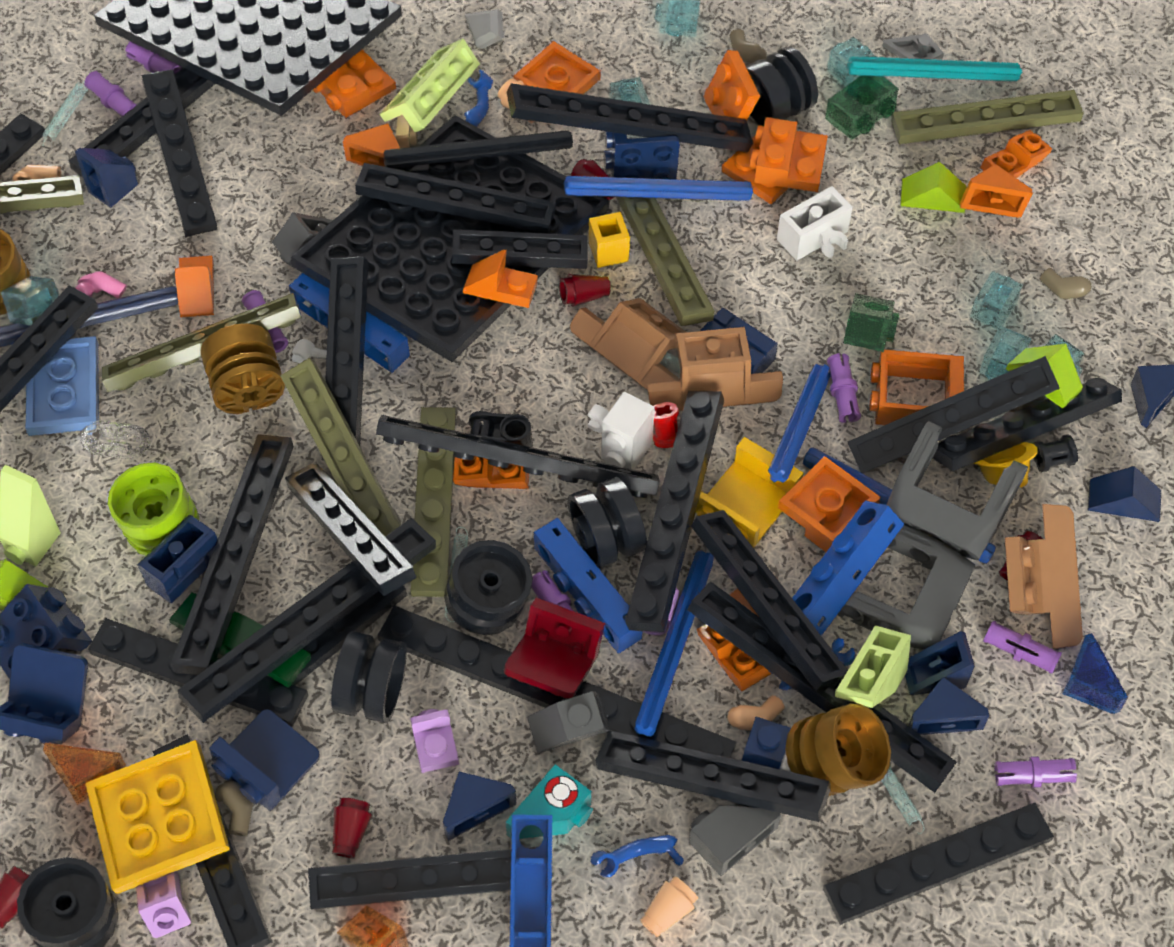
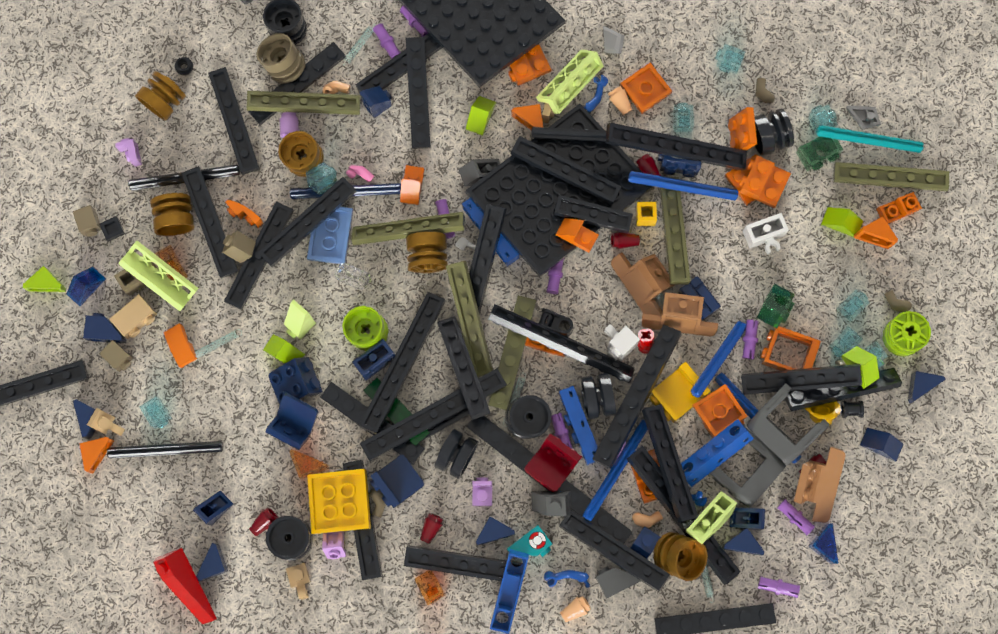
camera: 20 degrees right, 20 degrees up
(291, 167) = (480, 115): none -> lime slope
(479, 366) = (554, 278): none -> medium lavender pin
(1101, 316) = (897, 338): none -> lime wheel

